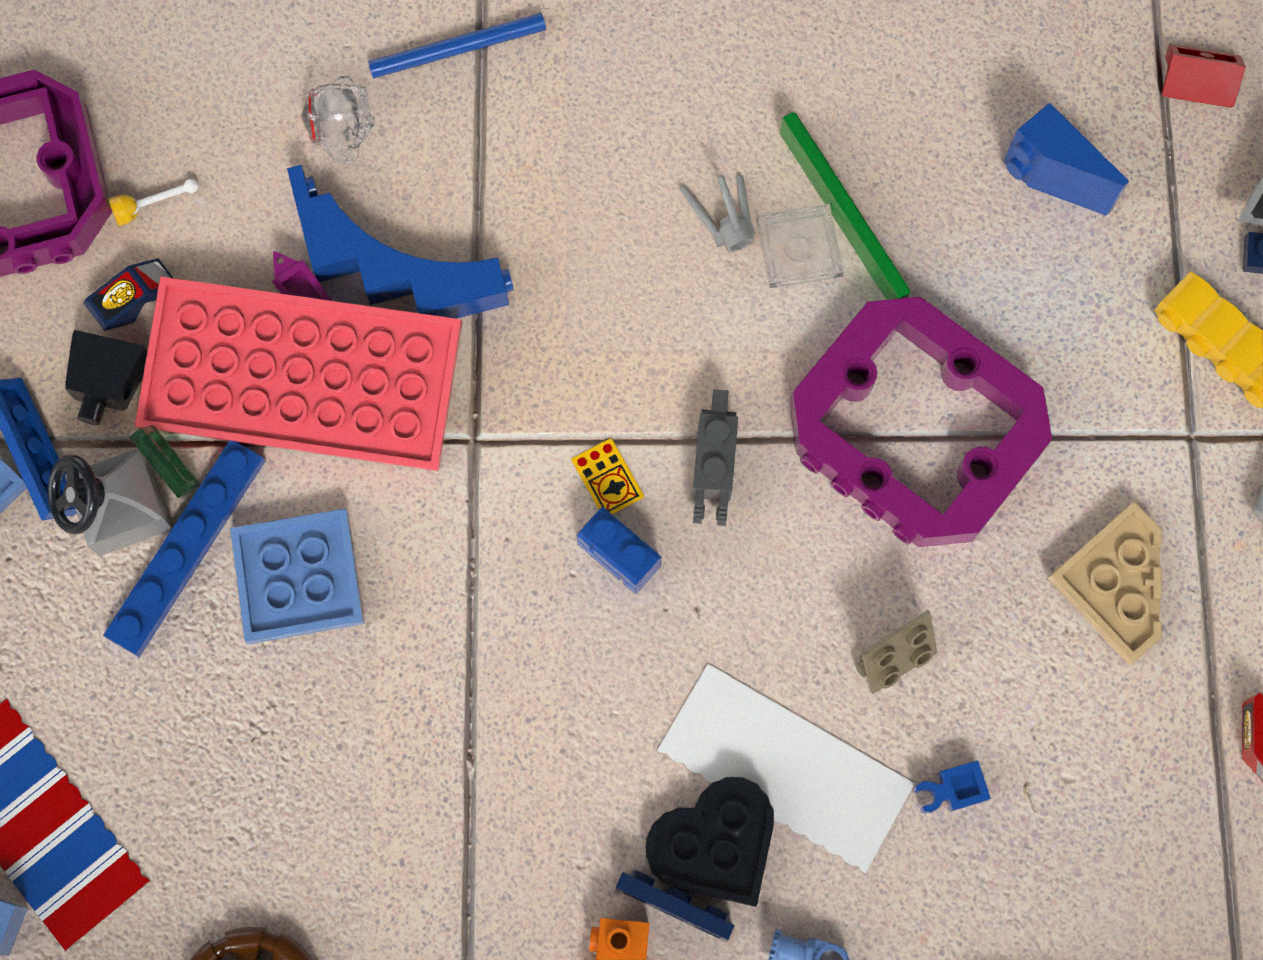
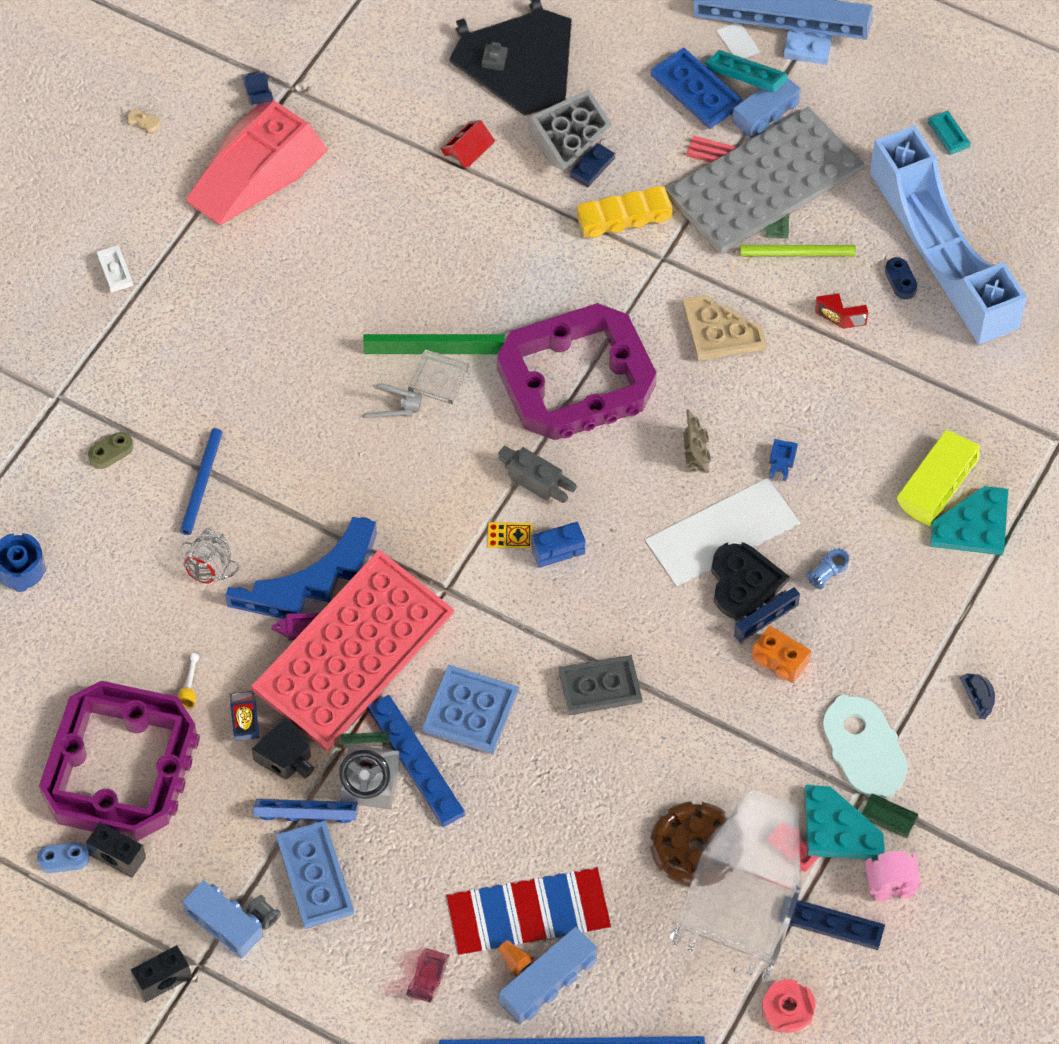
camera: 60 degrees left, 15 degrees down
(430, 730) = (600, 685): none -> dark grey plate
(1063, 163) = (479, 227): blue slope -> none

